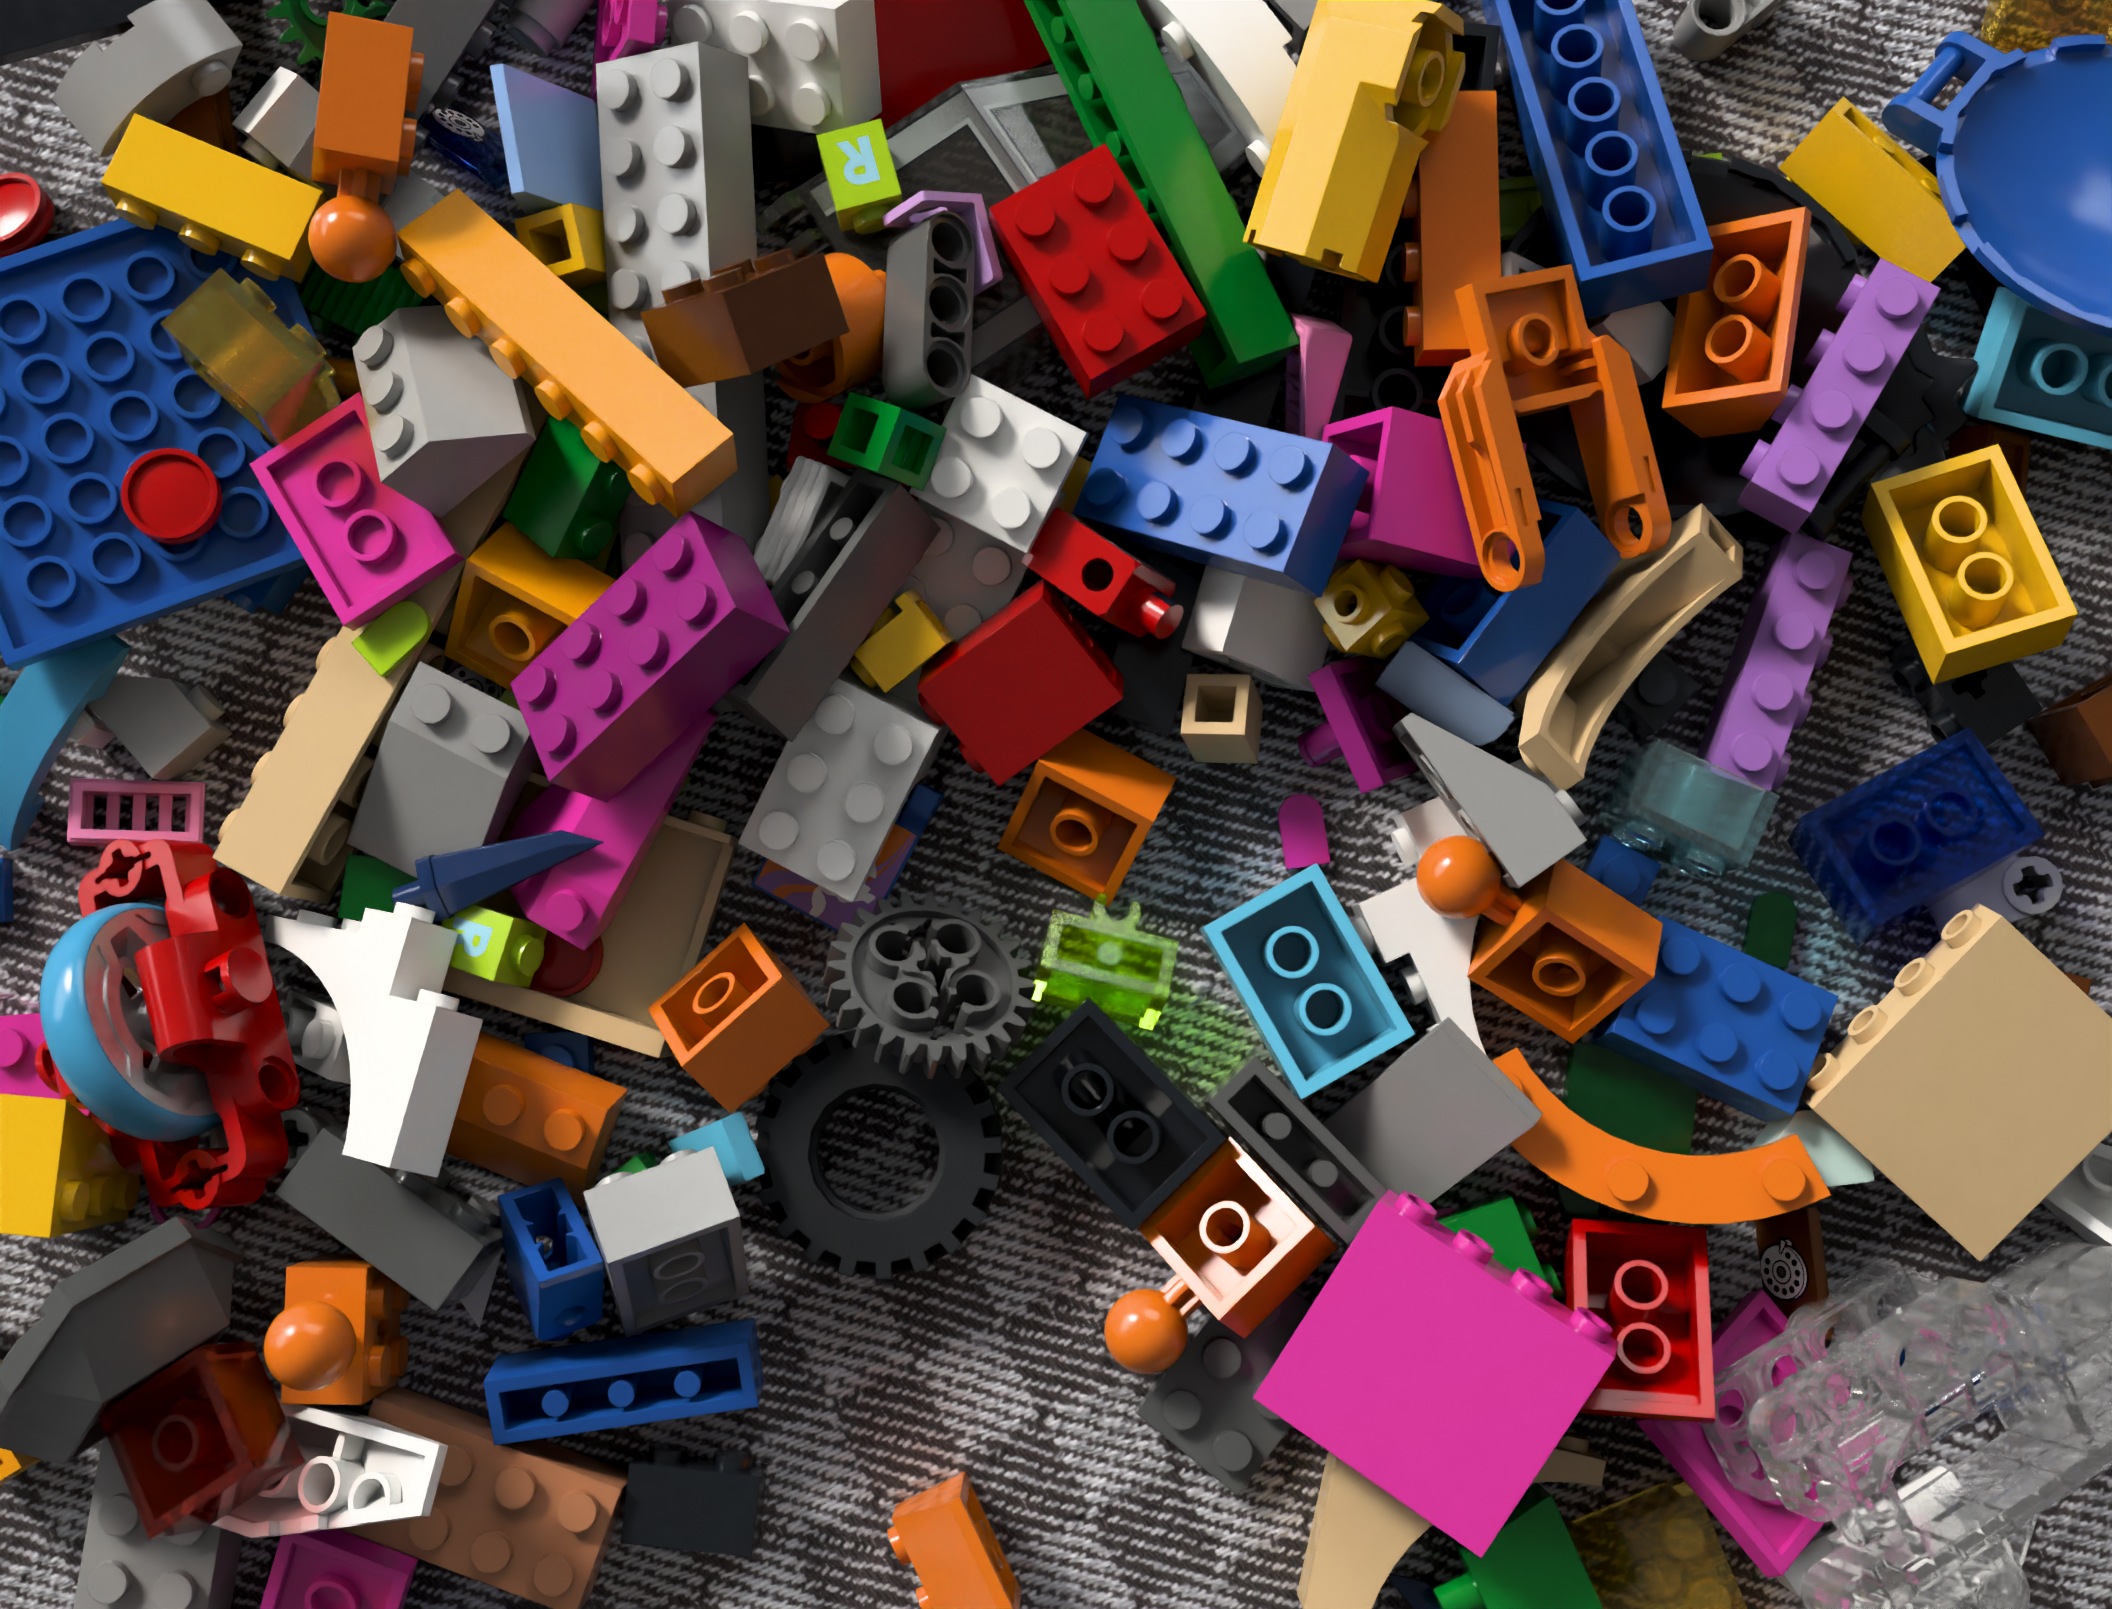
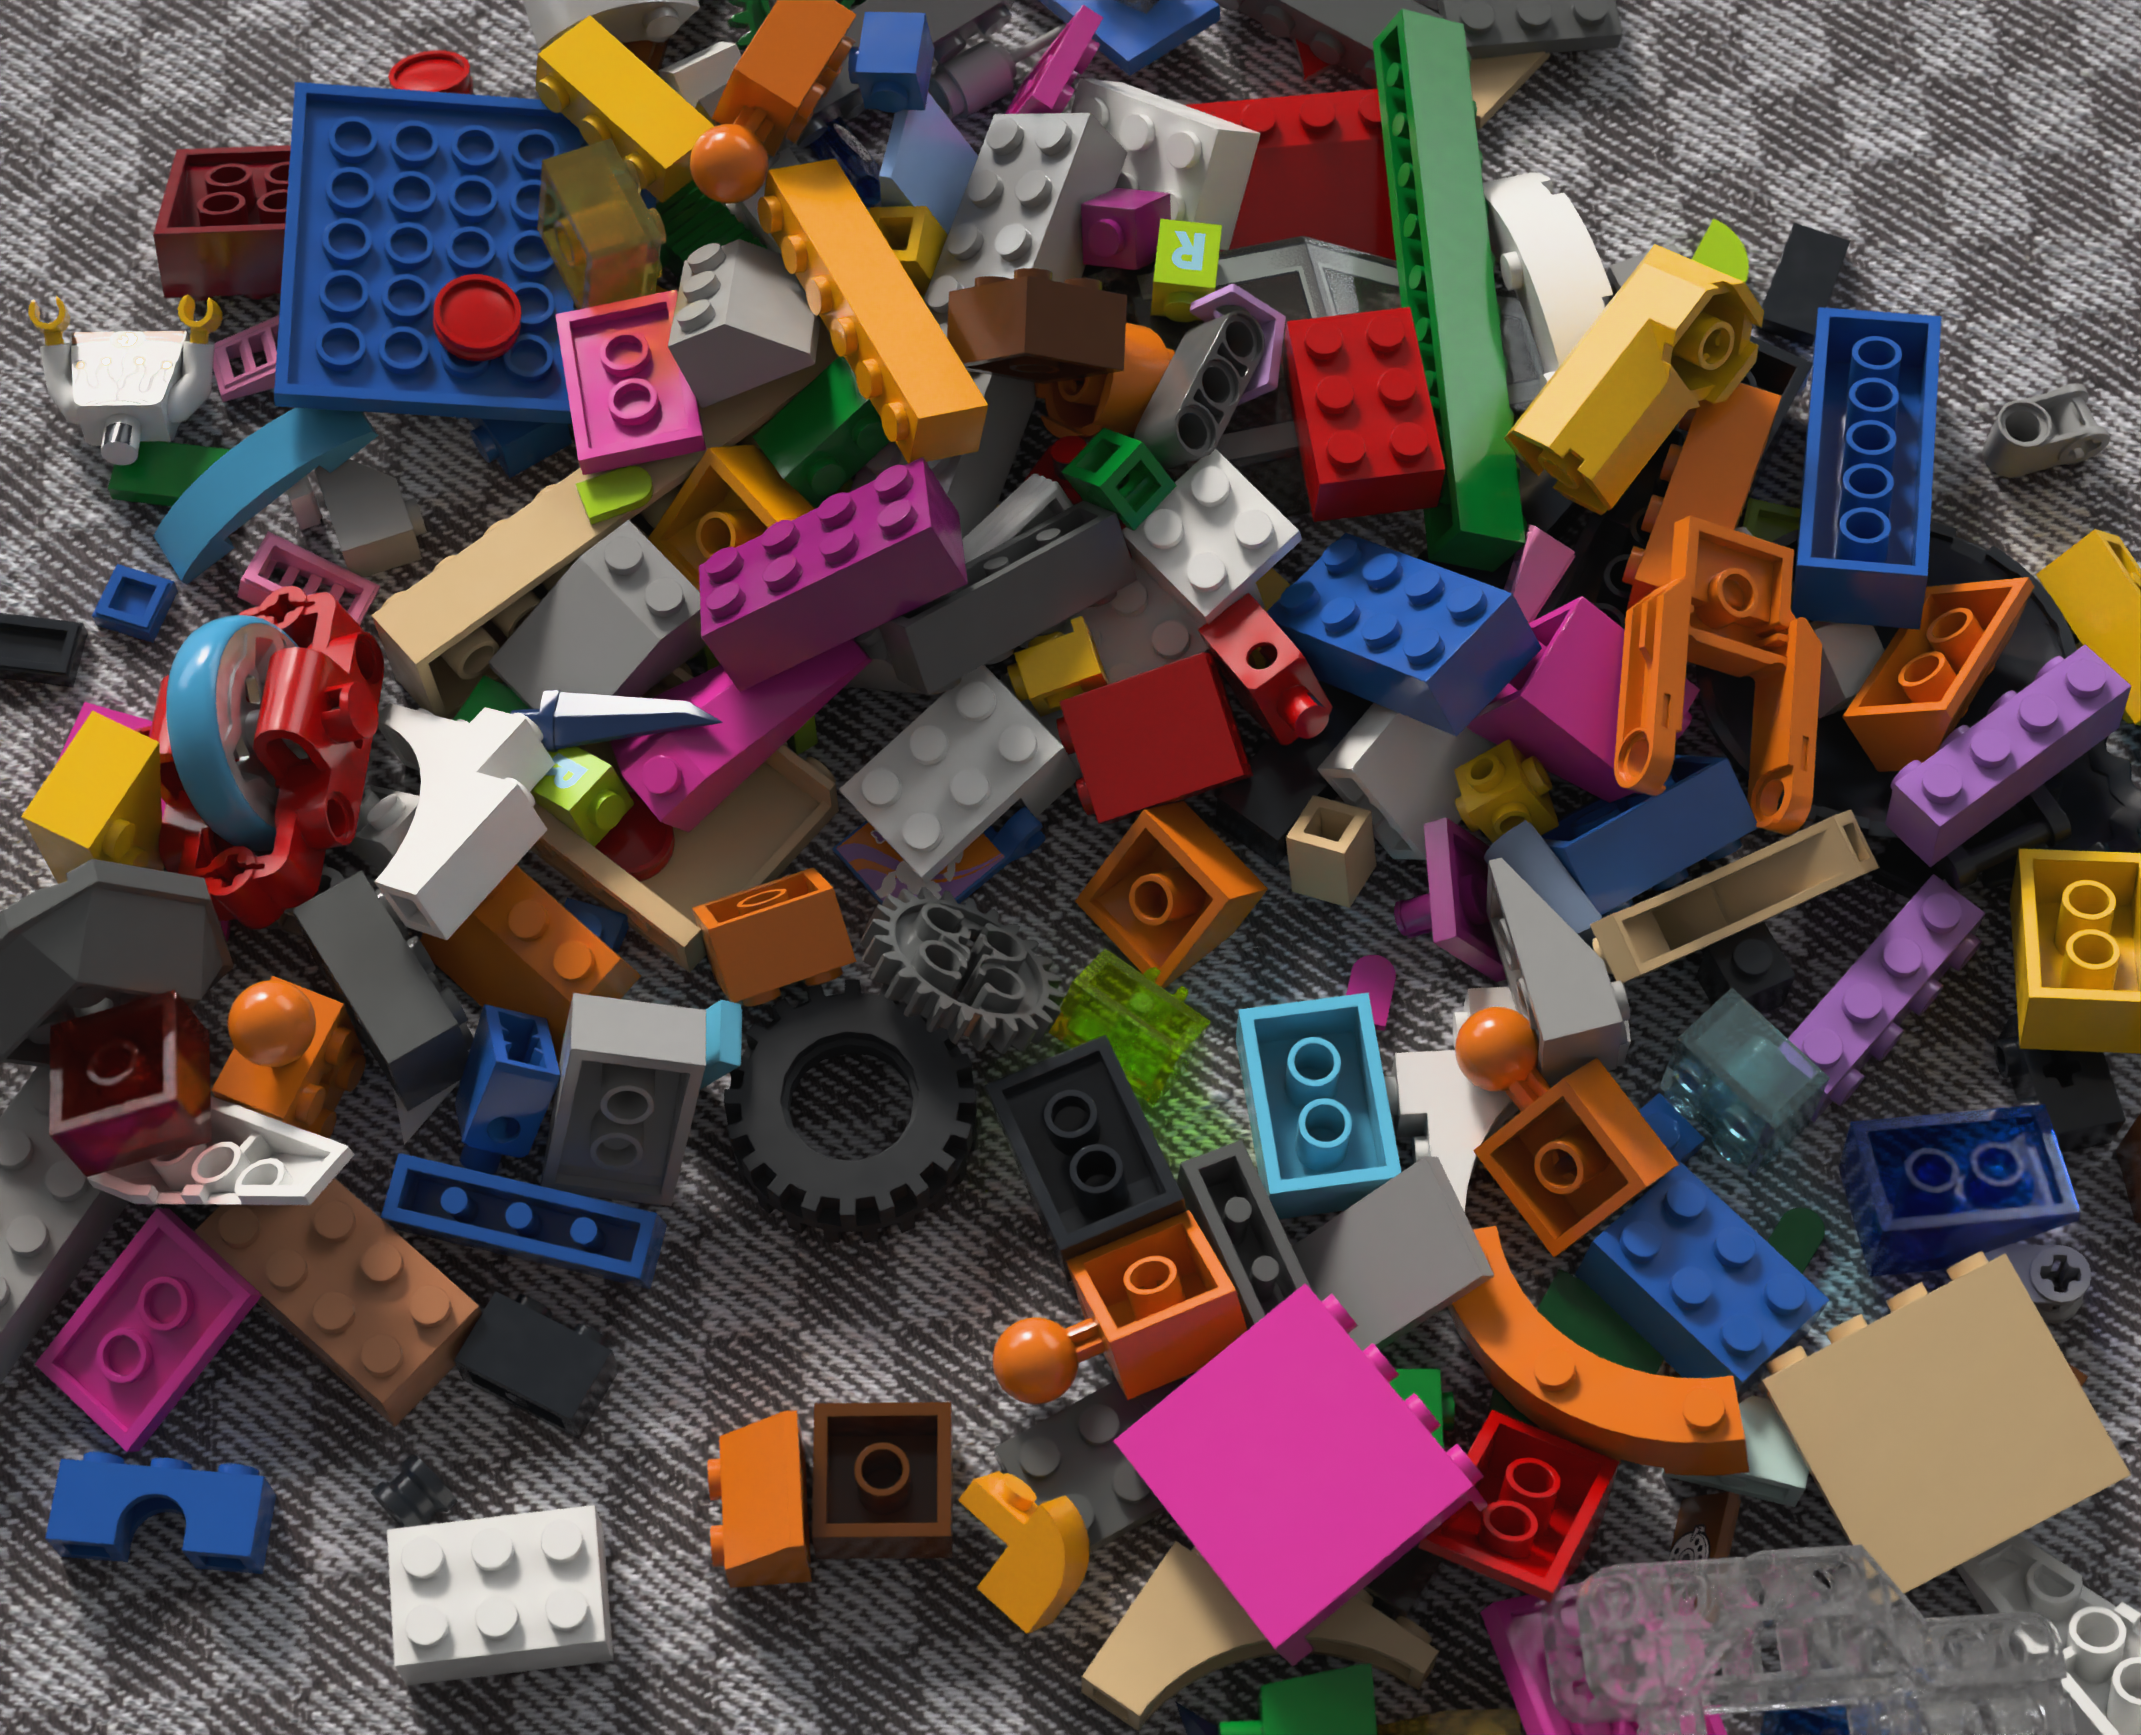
camera: 20 degrees right, 20 degrees down
(472, 62) = (893, 61): none -> blue brick
(778, 146) = (1123, 227): none -> magenta brick
(1053, 1496) = (882, 1480): none -> reddish brown brick
(1215, 1500) = (1044, 1550): none -> light orange brick

